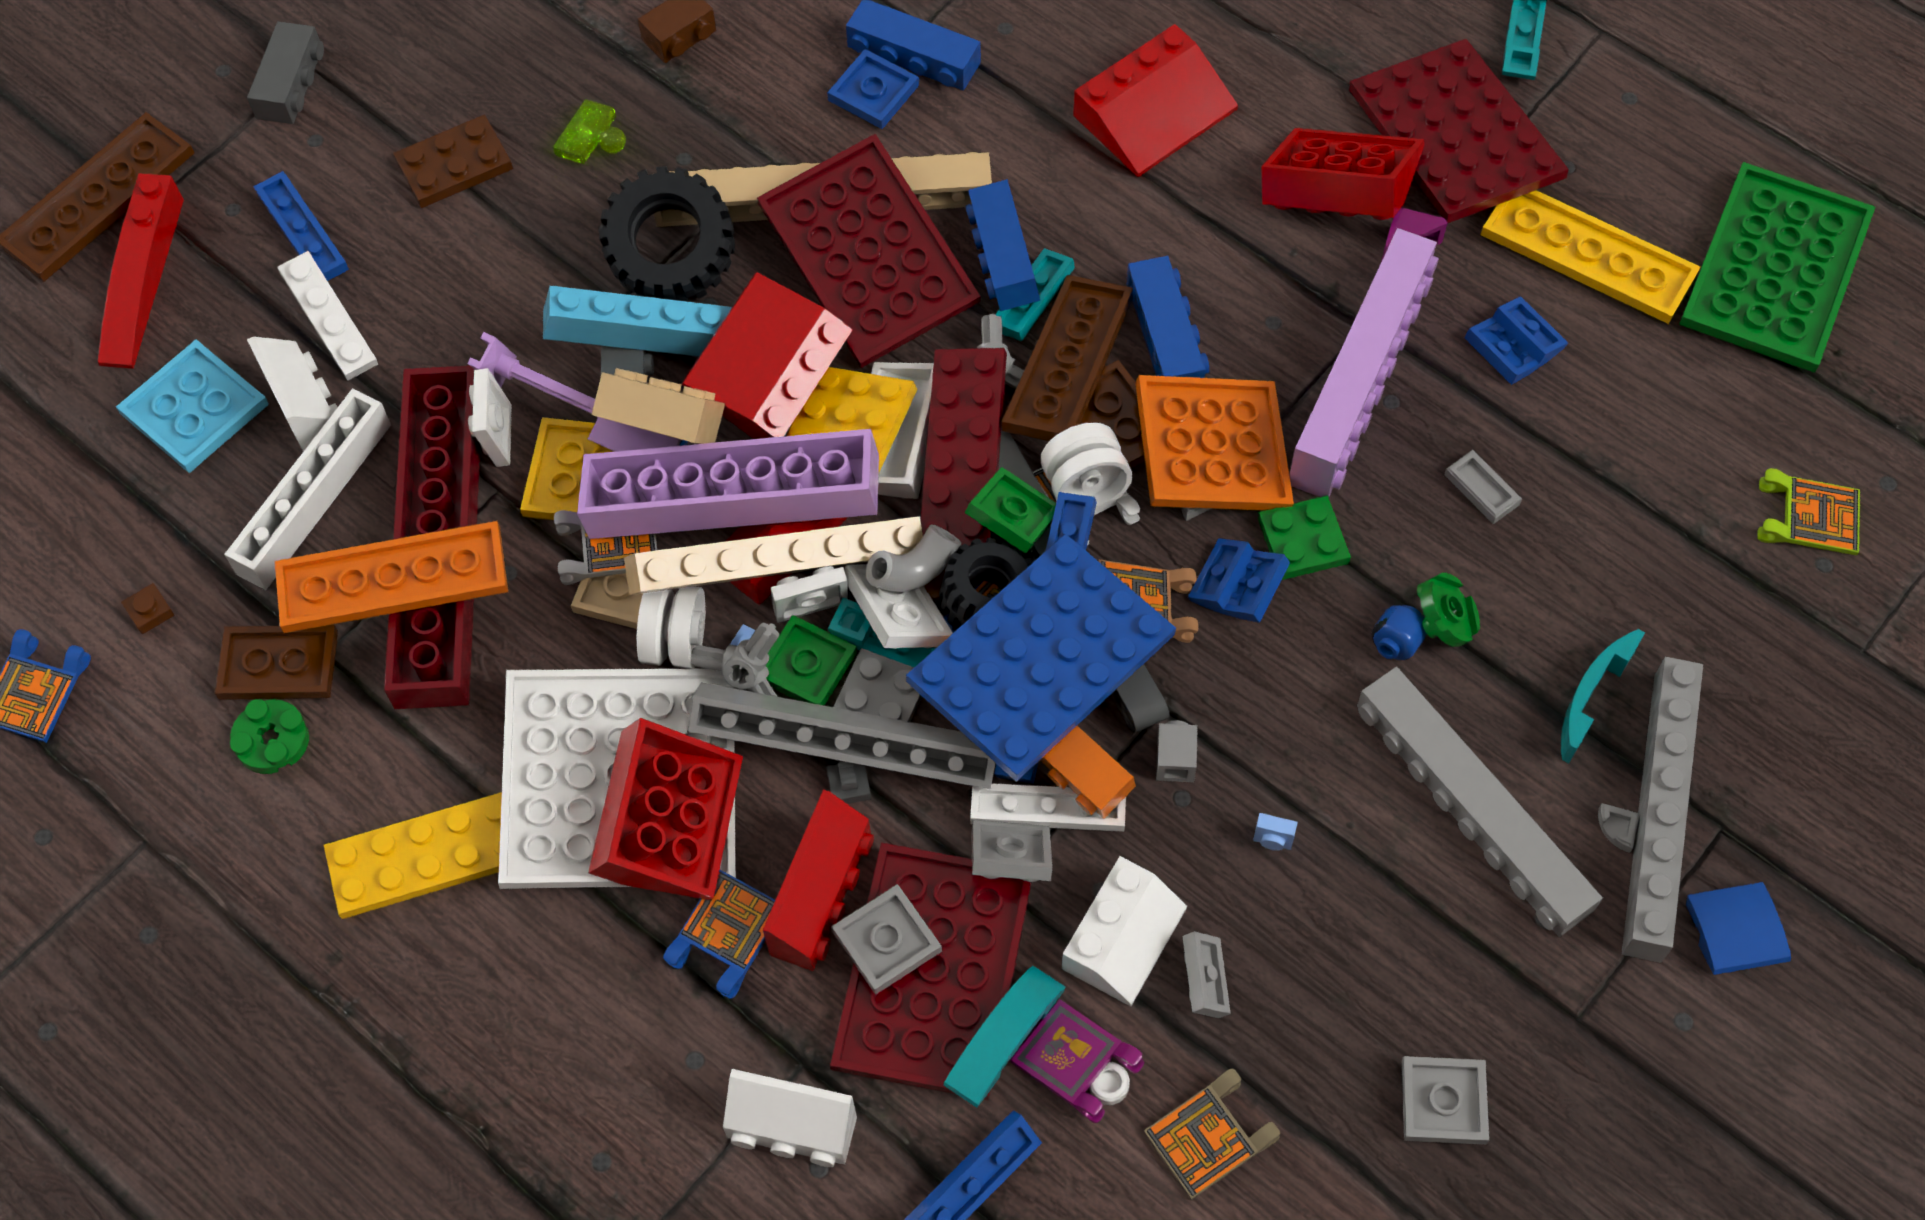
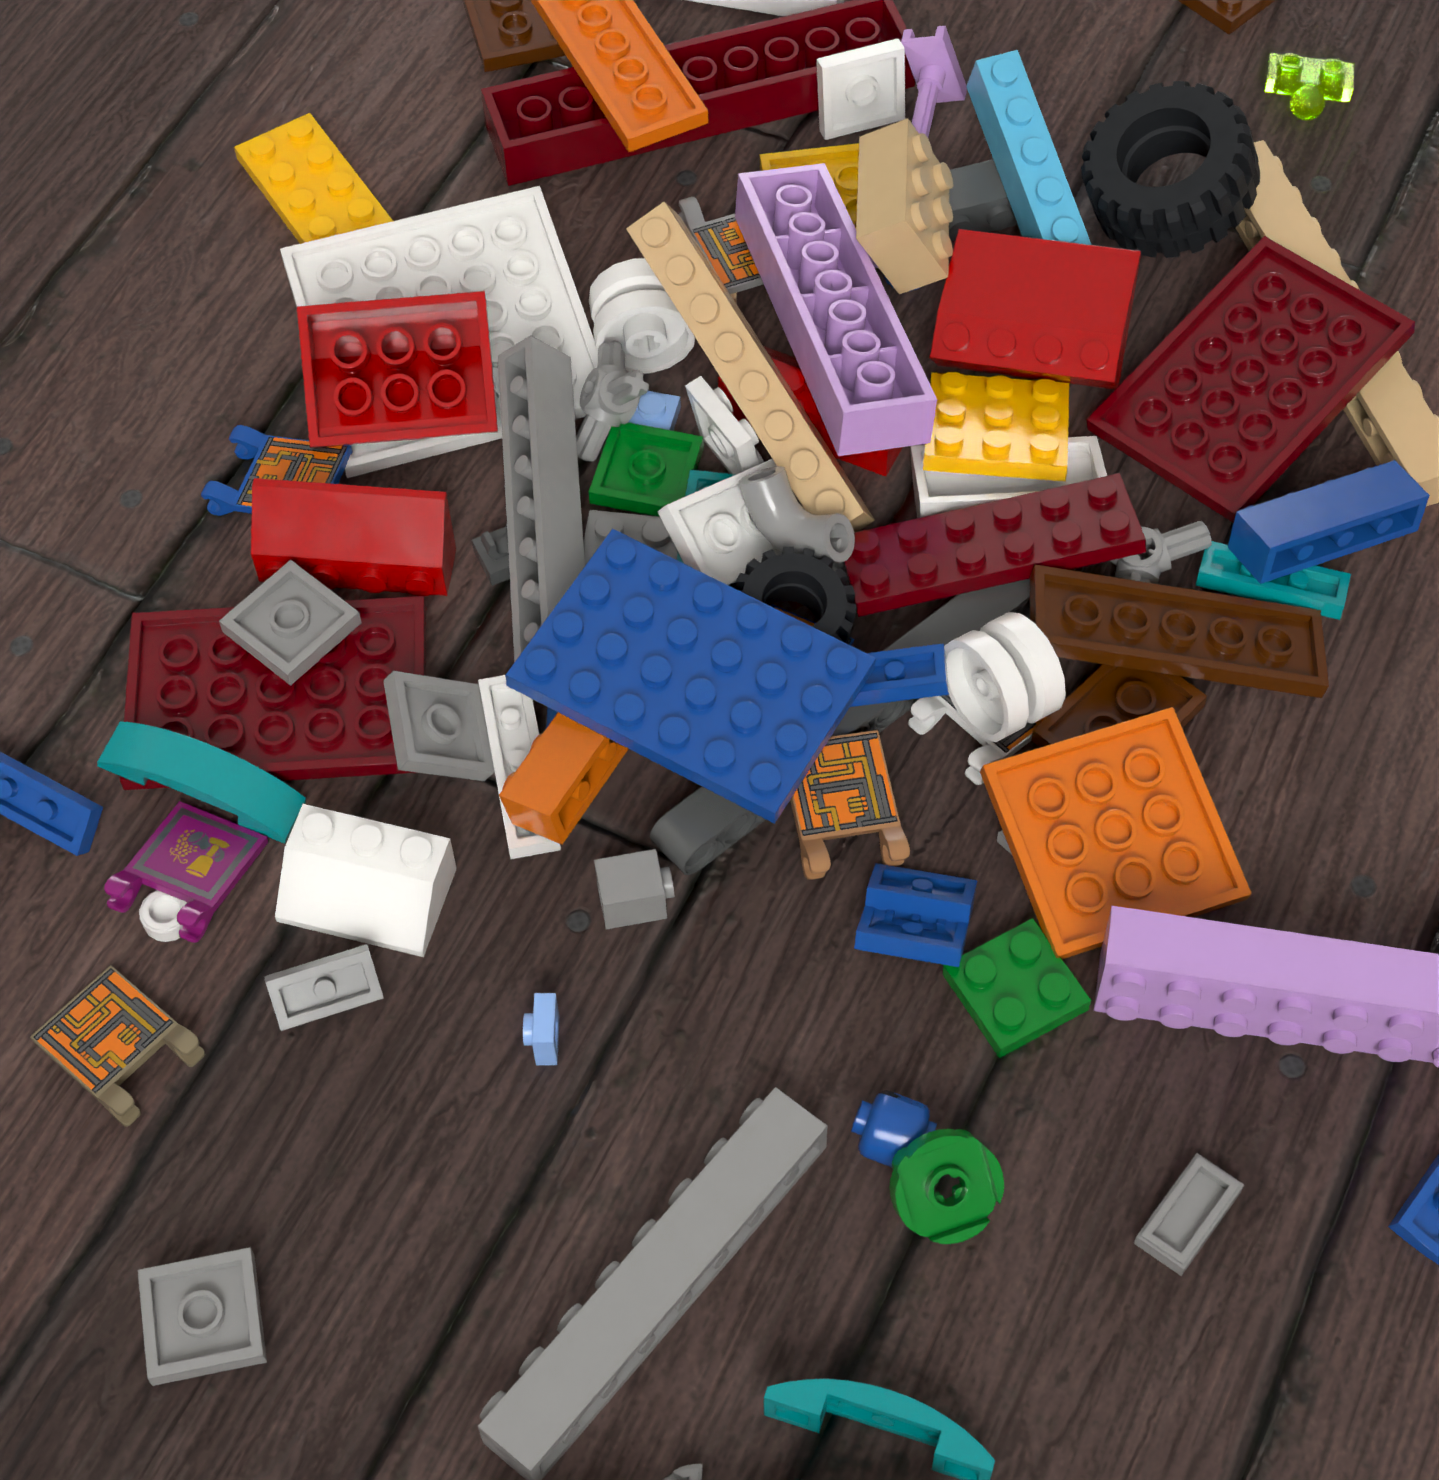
camera: 75 degrees right, 5 degrees down
(257, 719) = (439, 22): green plate -> none
(789, 1118) = (58, 588): white slope -> none
(1012, 510) = (901, 599): green plate -> none
(1165, 319) = (1293, 741): blue brick -> none

